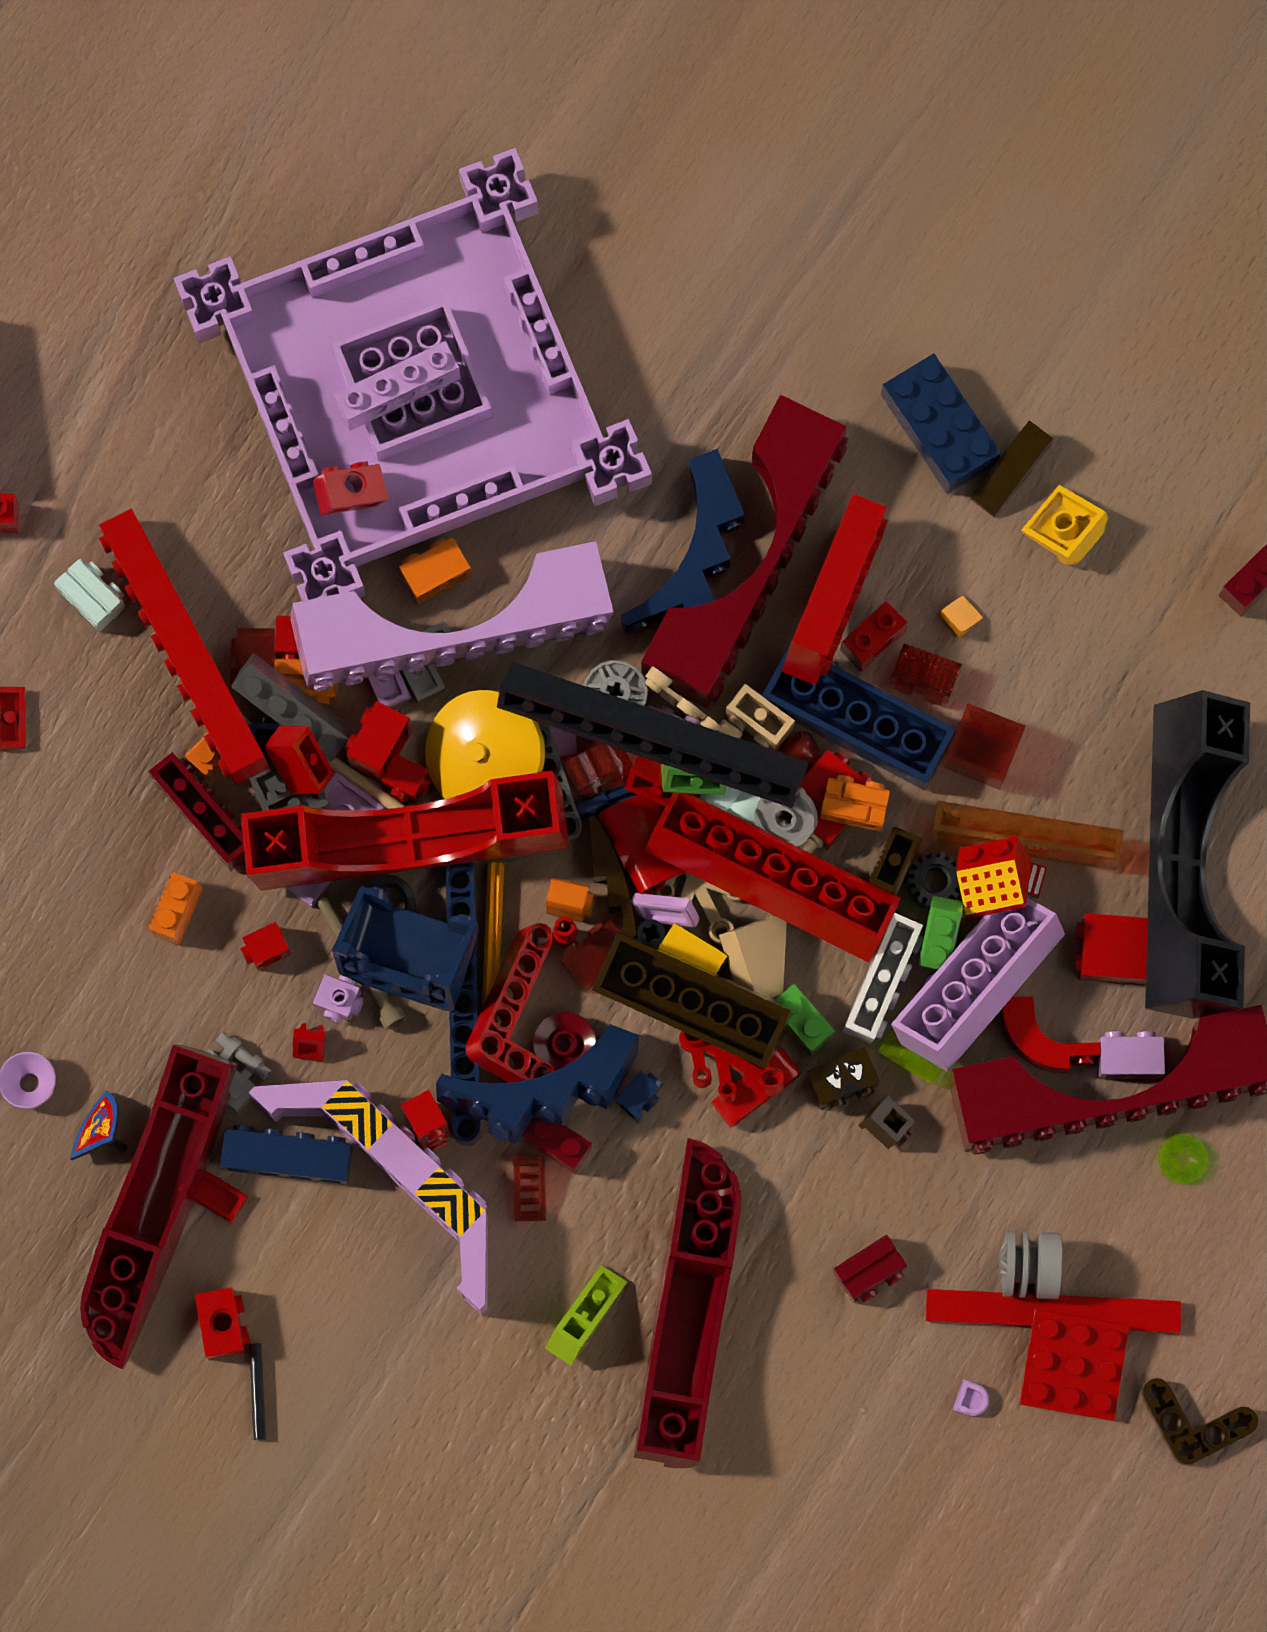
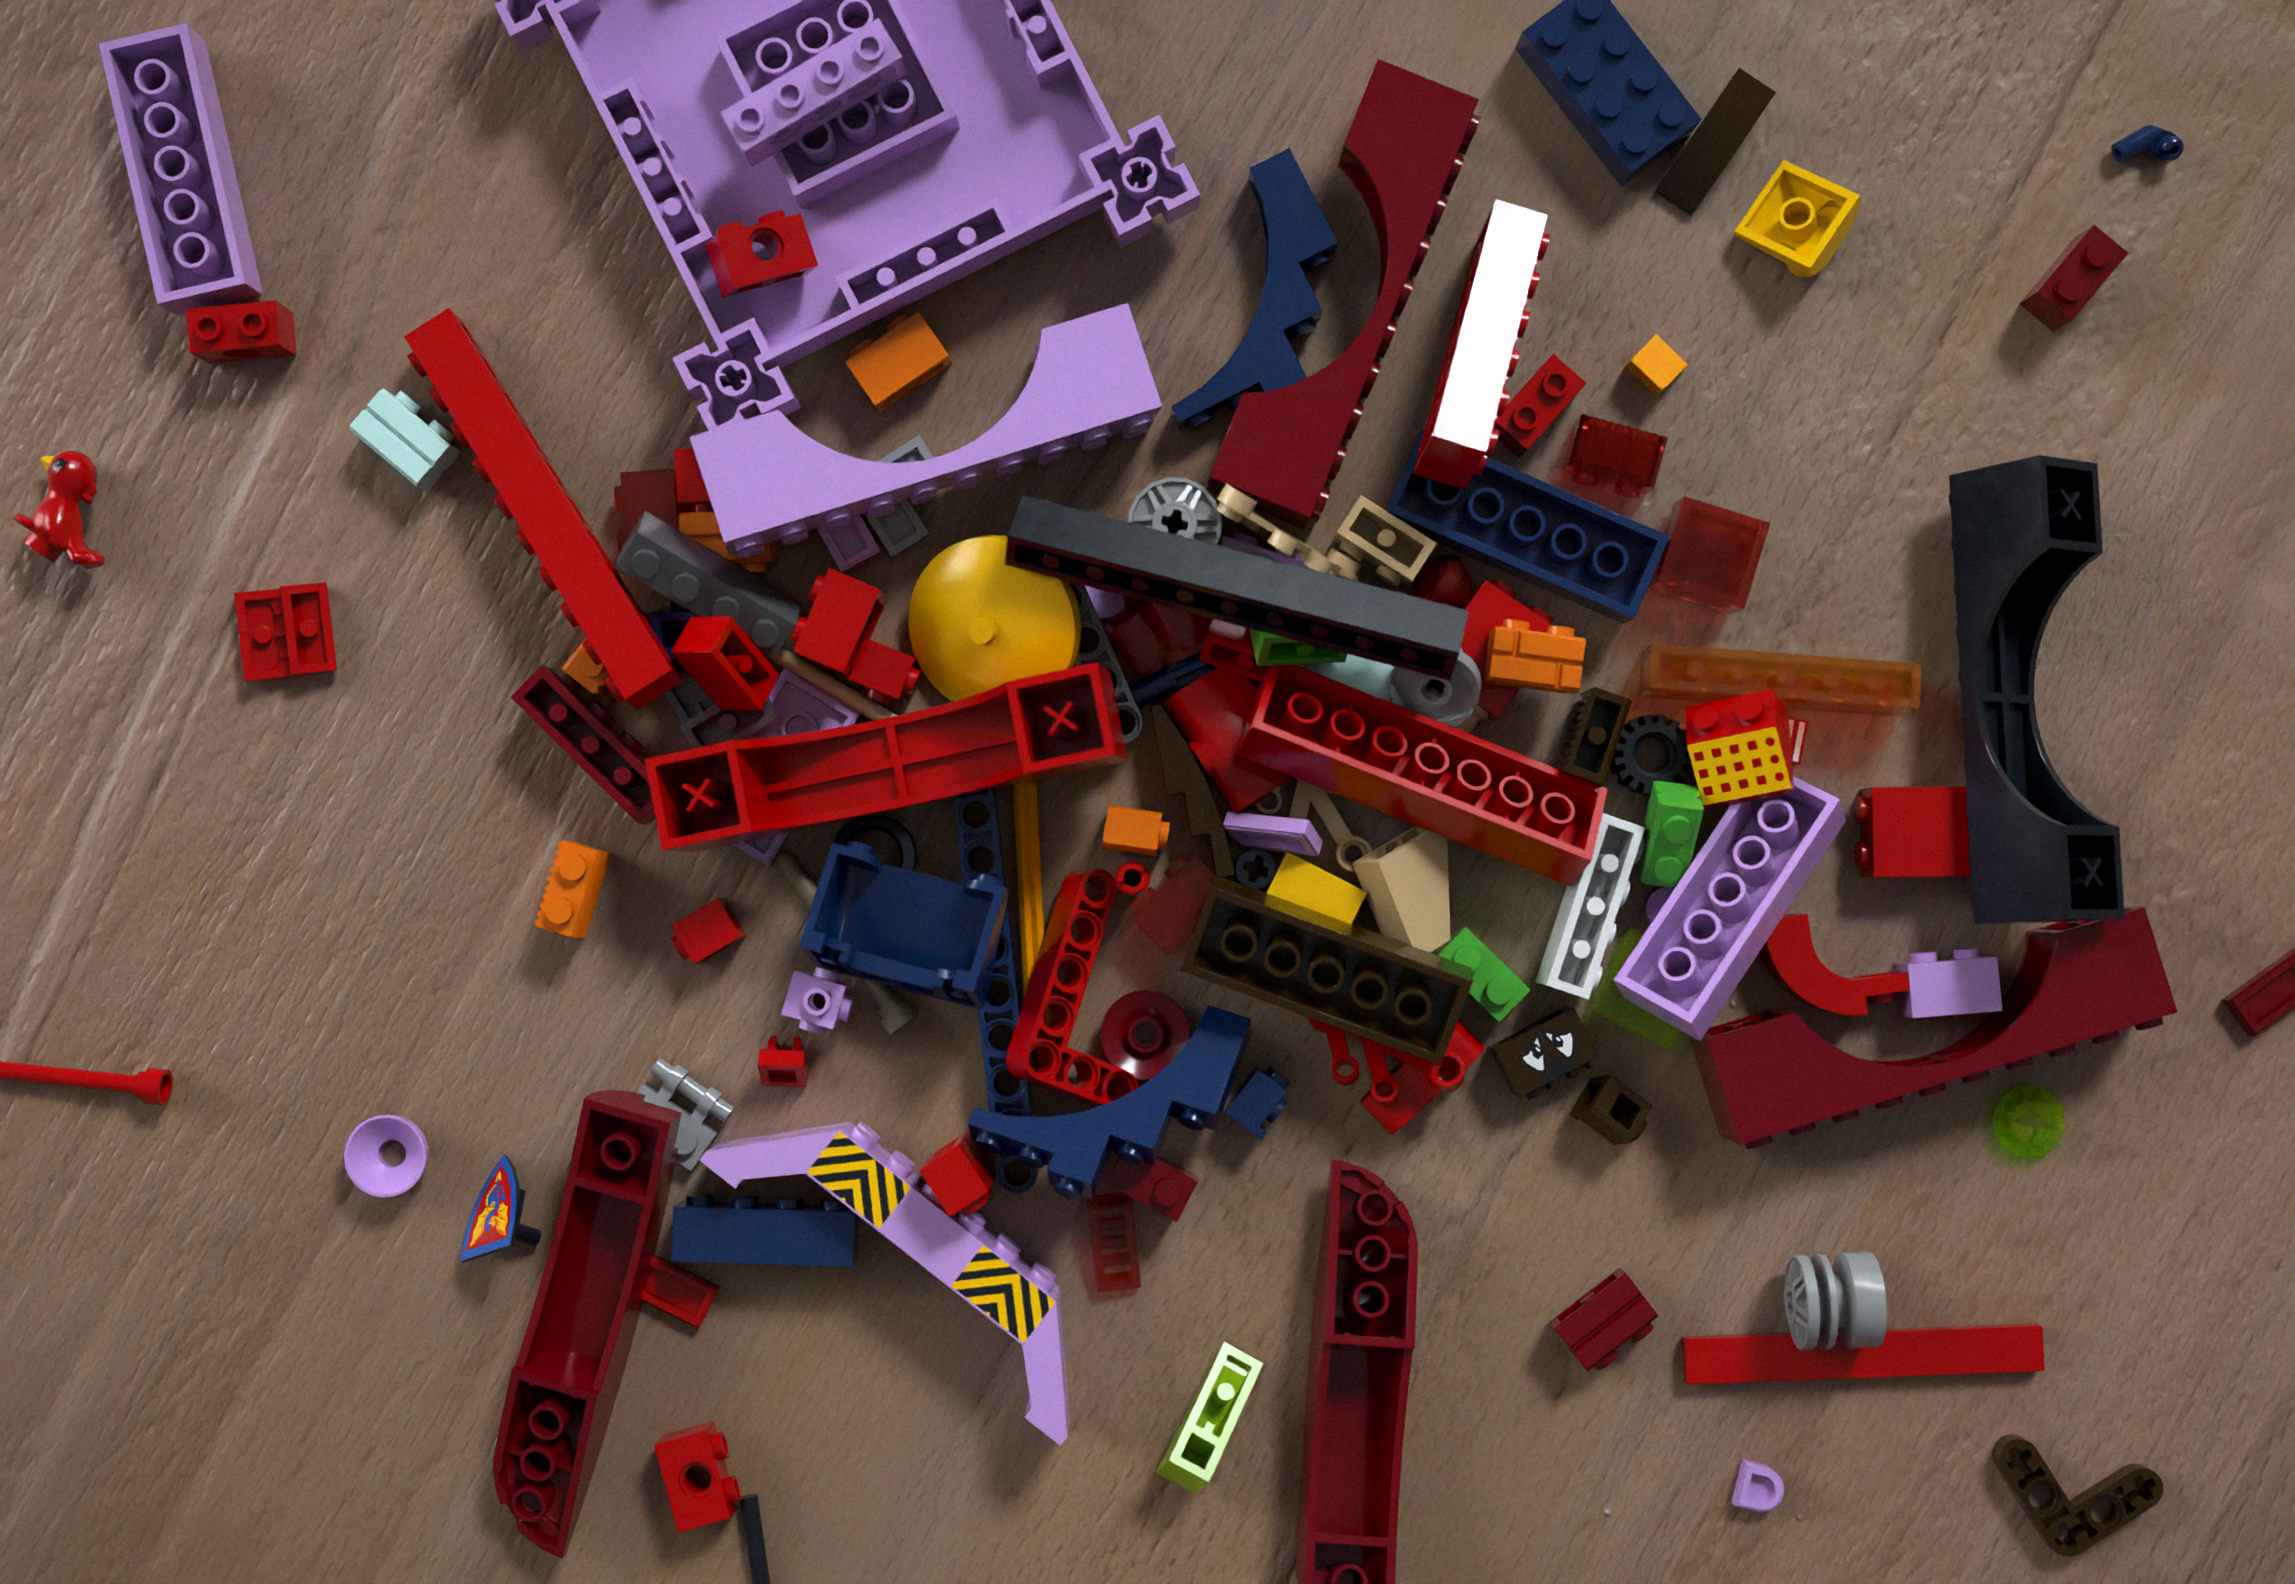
camera: 10 degrees left, 10 degrees up
(1074, 1365) = (1899, 1429): red plate -> none

